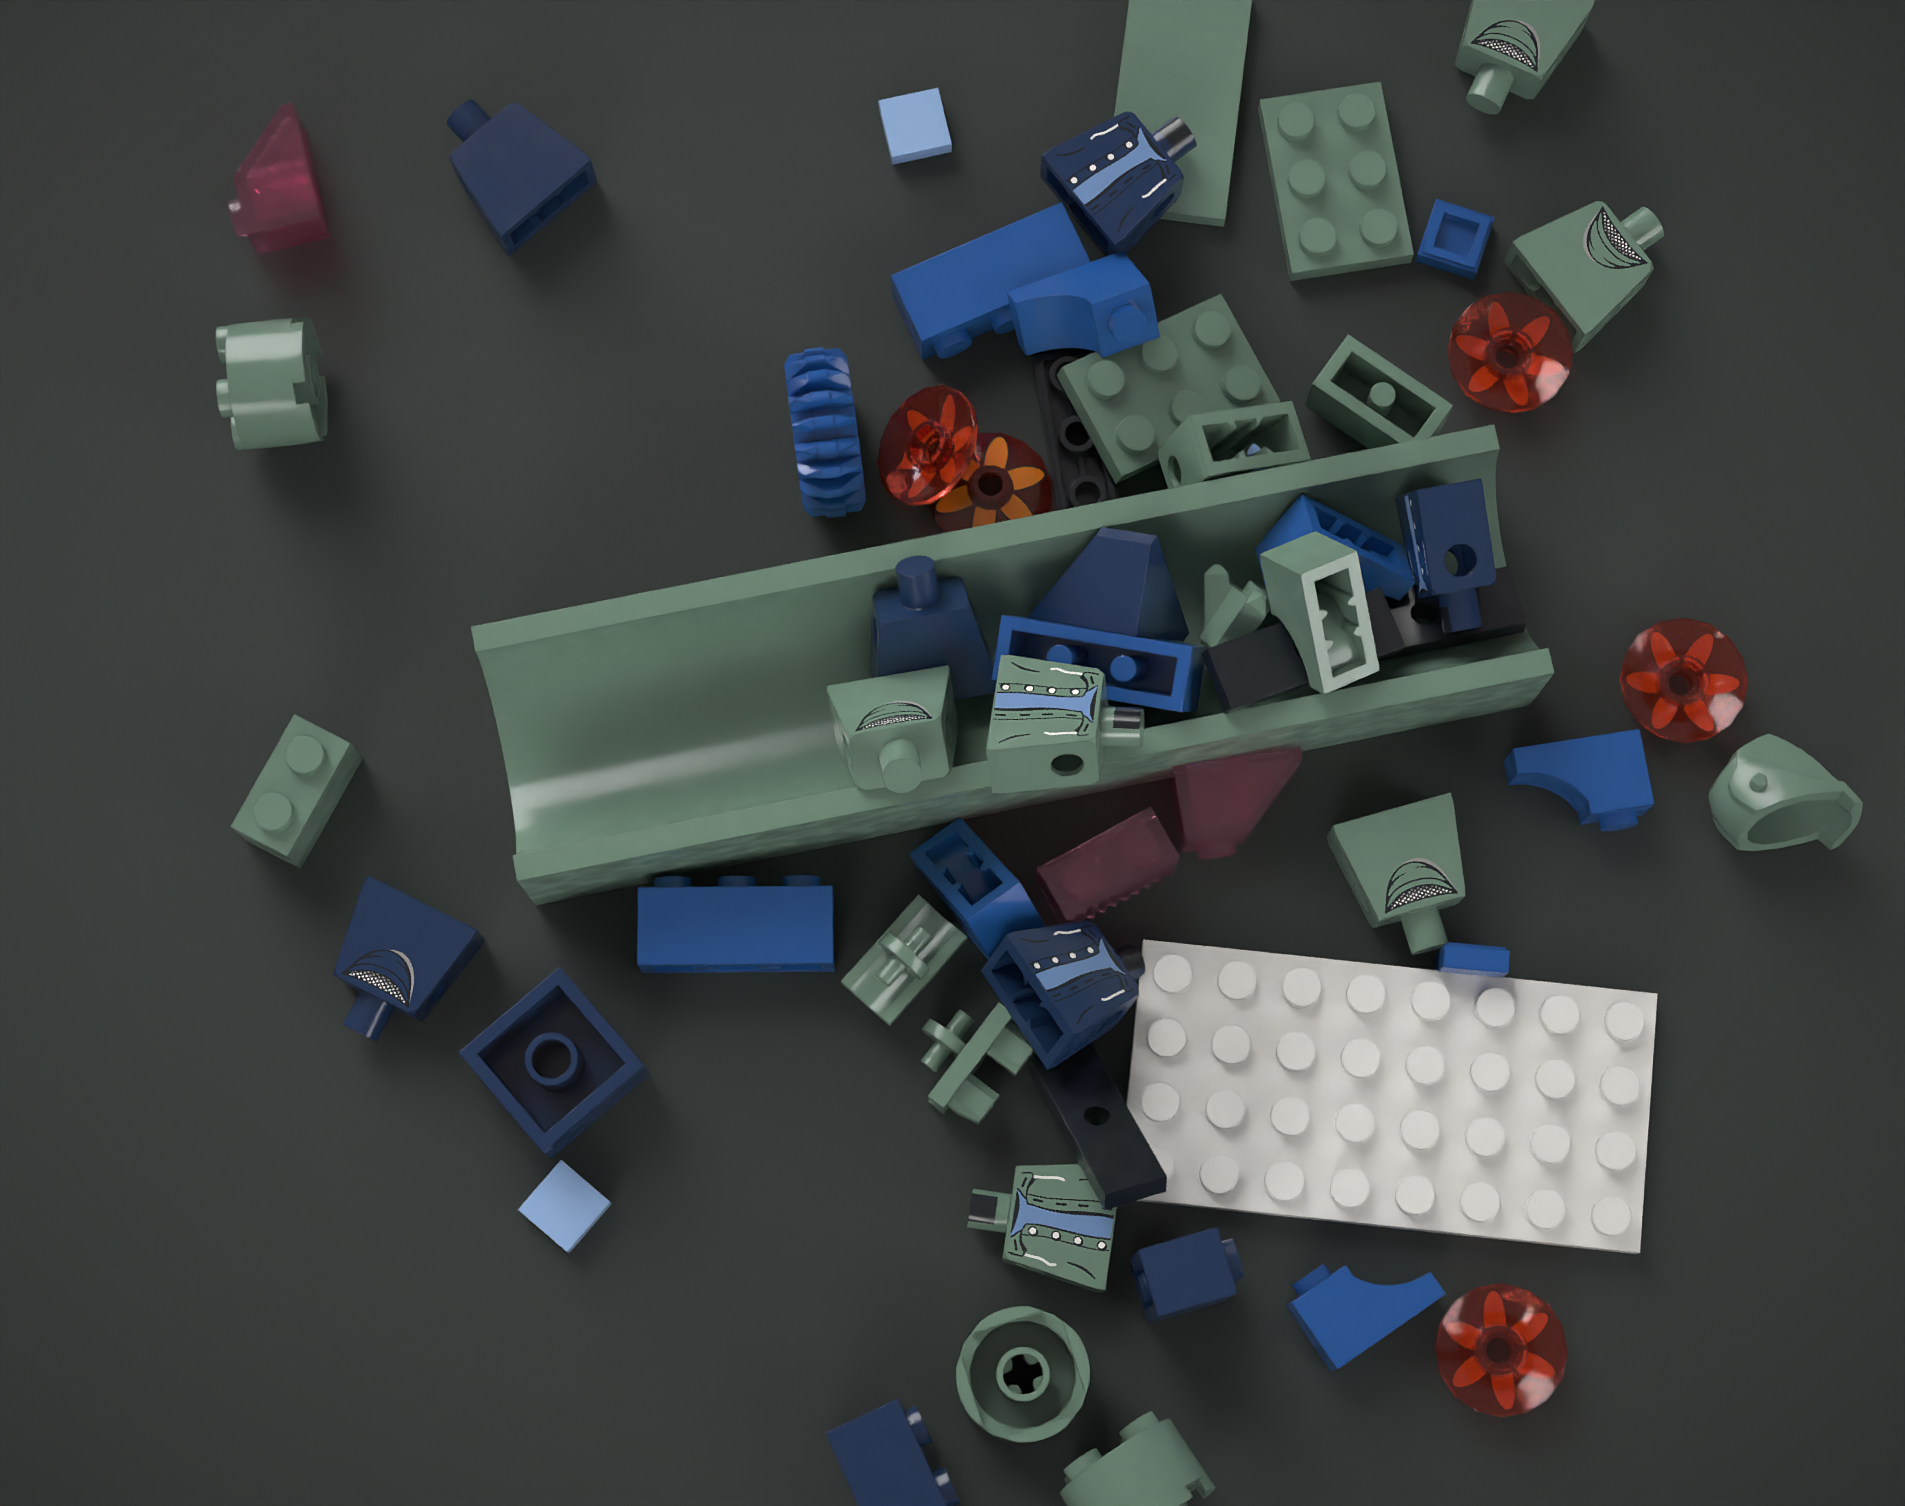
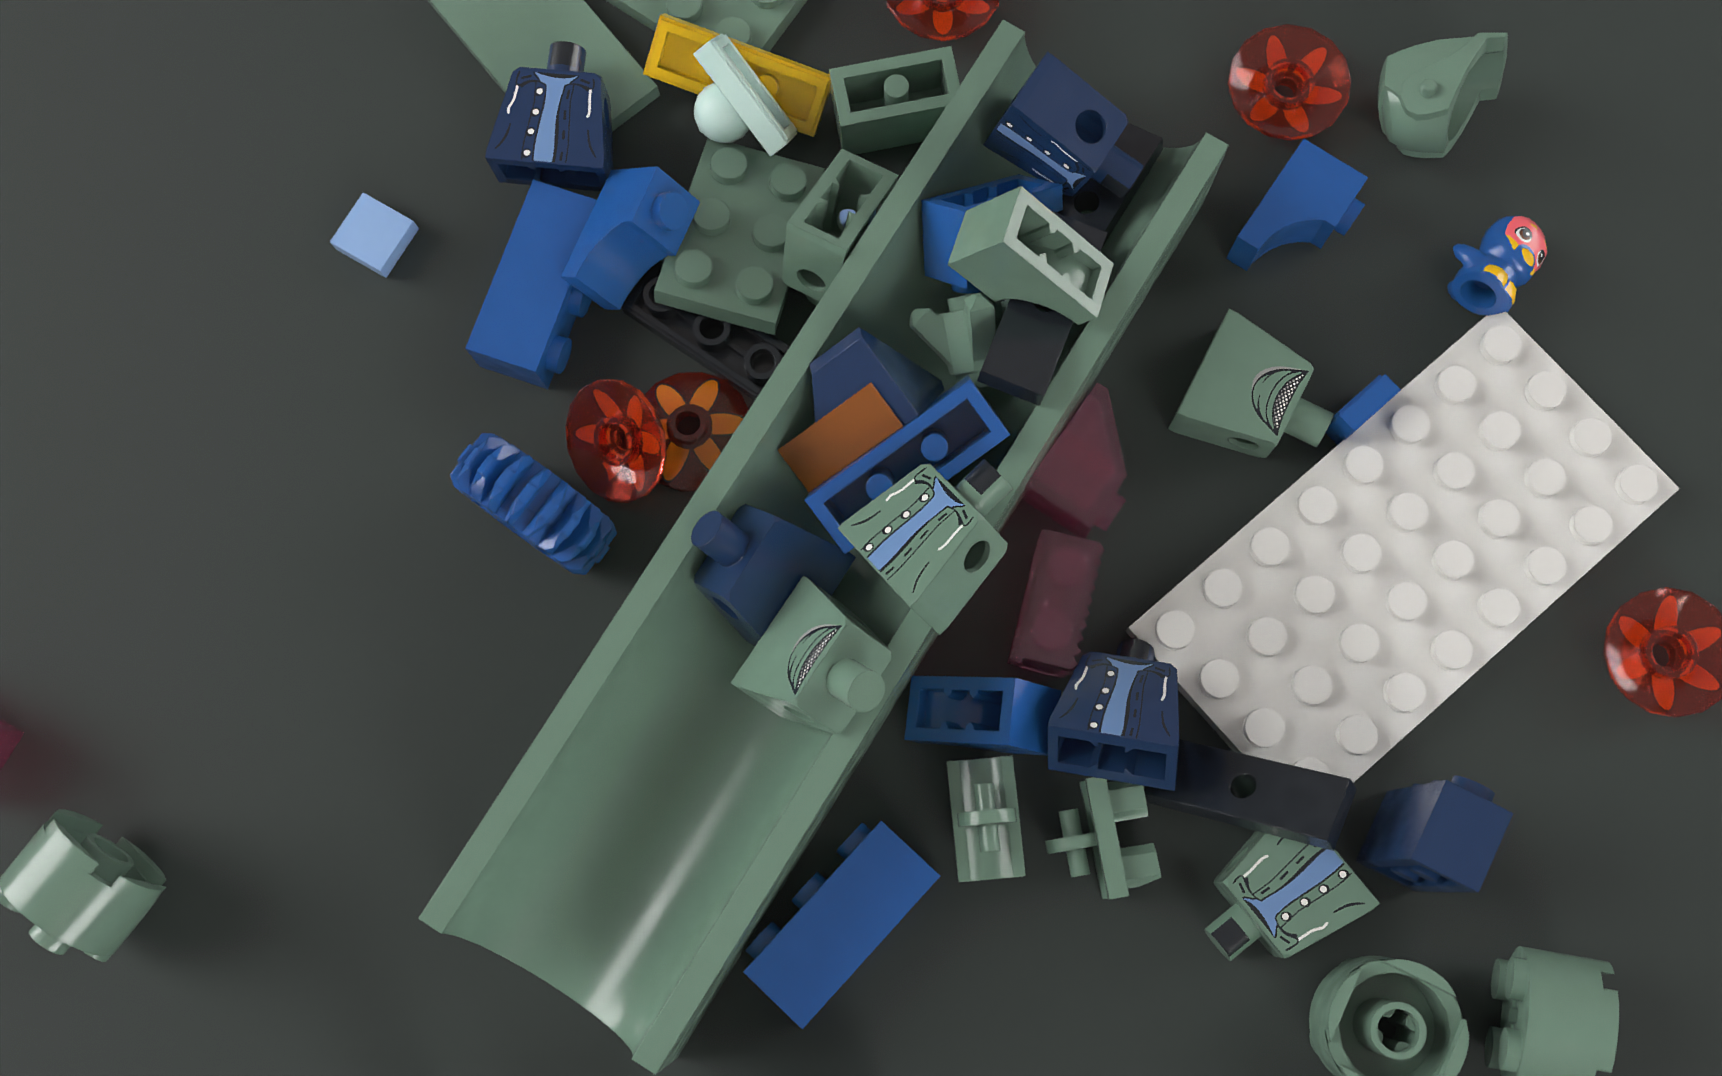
camera: 40 degrees left, 0 degrees up
(516, 170) = (112, 546): dark blue torso -> none
(1071, 598) = (840, 437): none -> dark orange sticker
(1265, 291) = (737, 100): none -> light aqua tile
(1289, 270) = (794, 86): none -> yellow tile
(1350, 1315) = (1557, 732): blue arch -> none
(1696, 967) = (1505, 260): none -> blue animal

